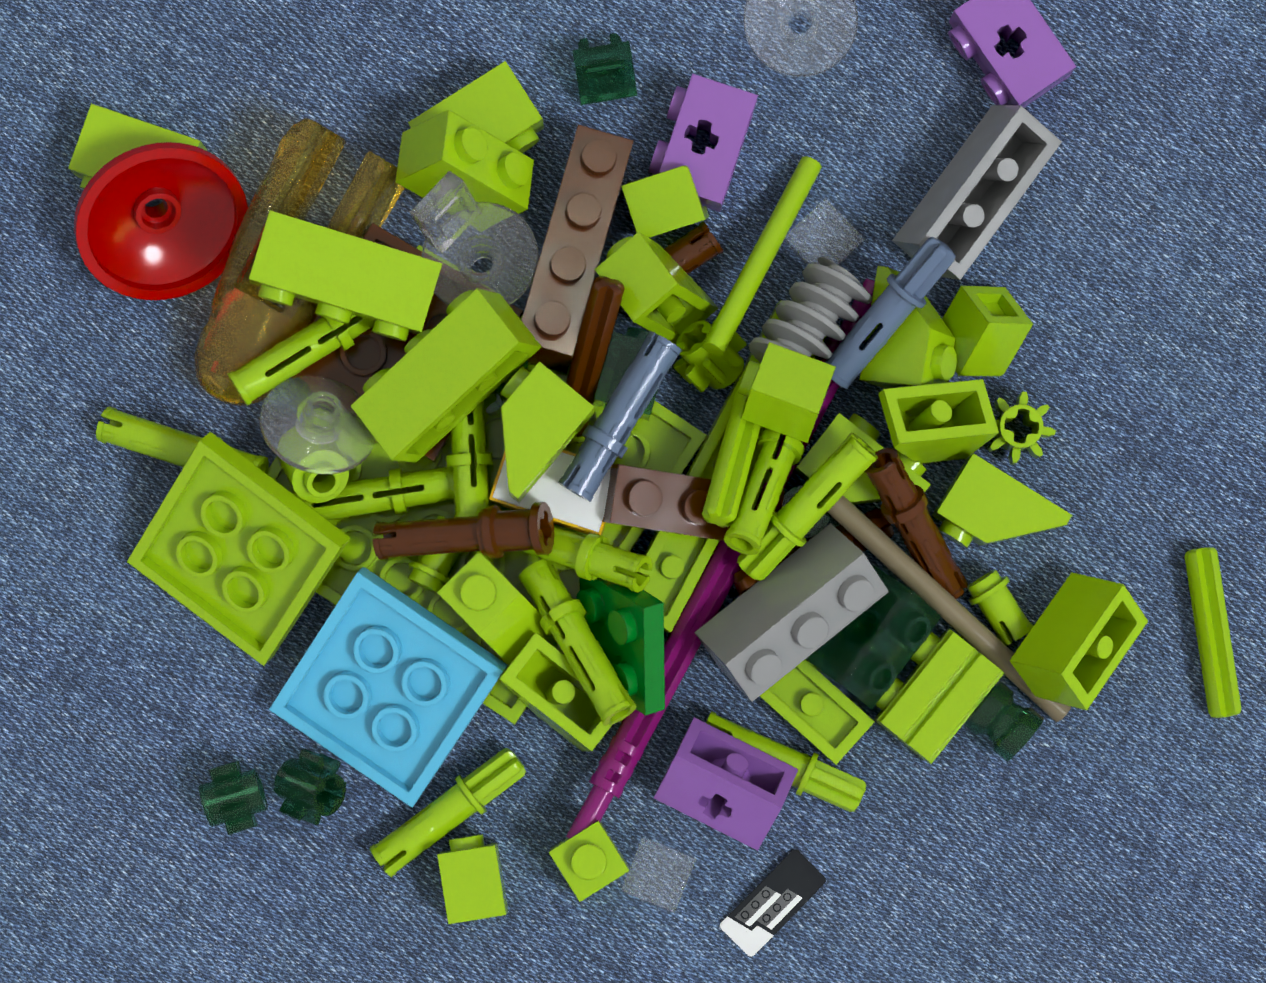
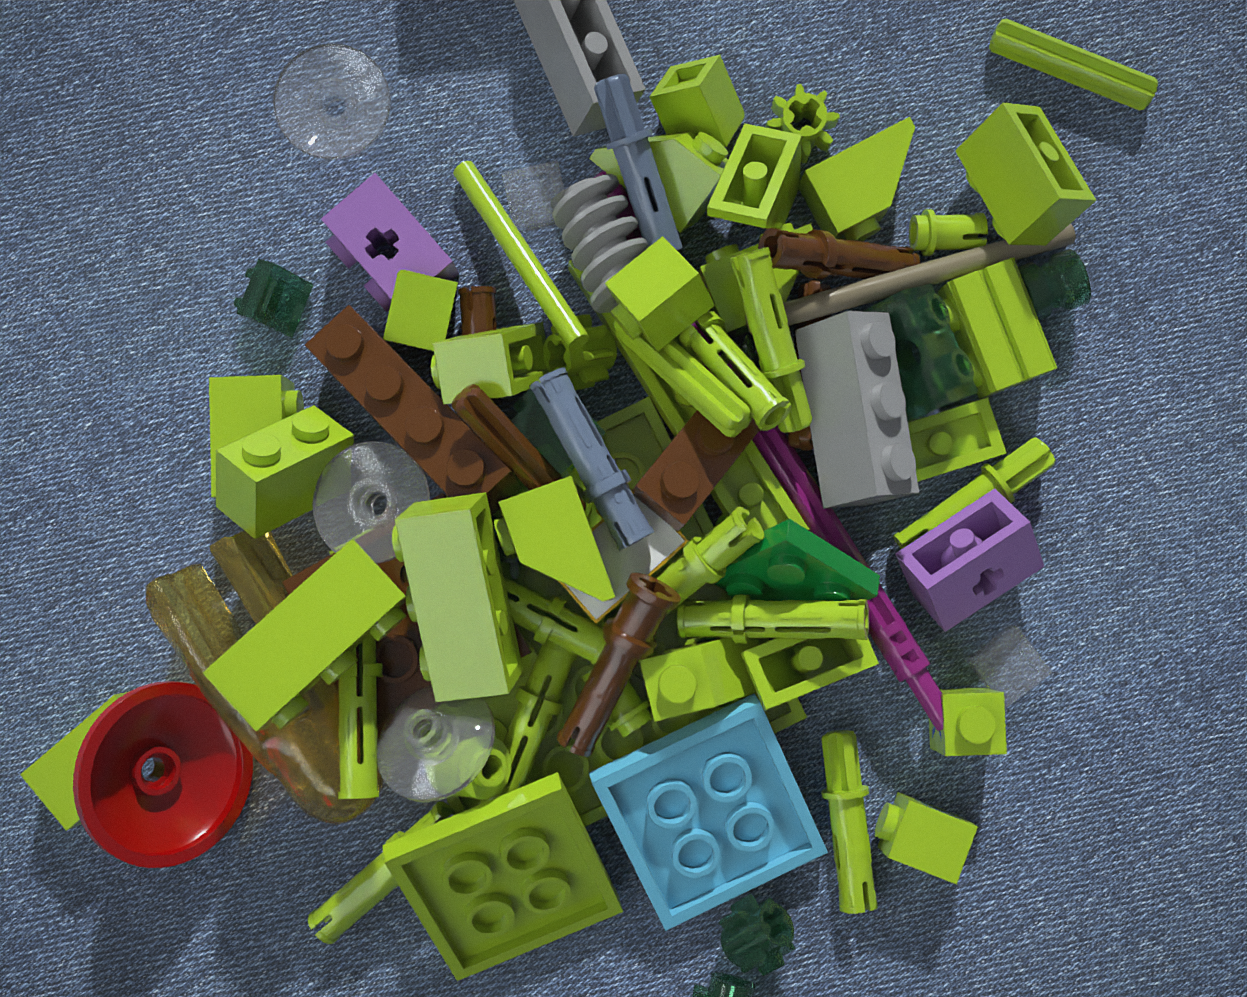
camera: 60 degrees left, 0 degrees up
(445, 212) = (309, 508): clear tile -> none
(773, 903) = (1089, 580): sticker -> none

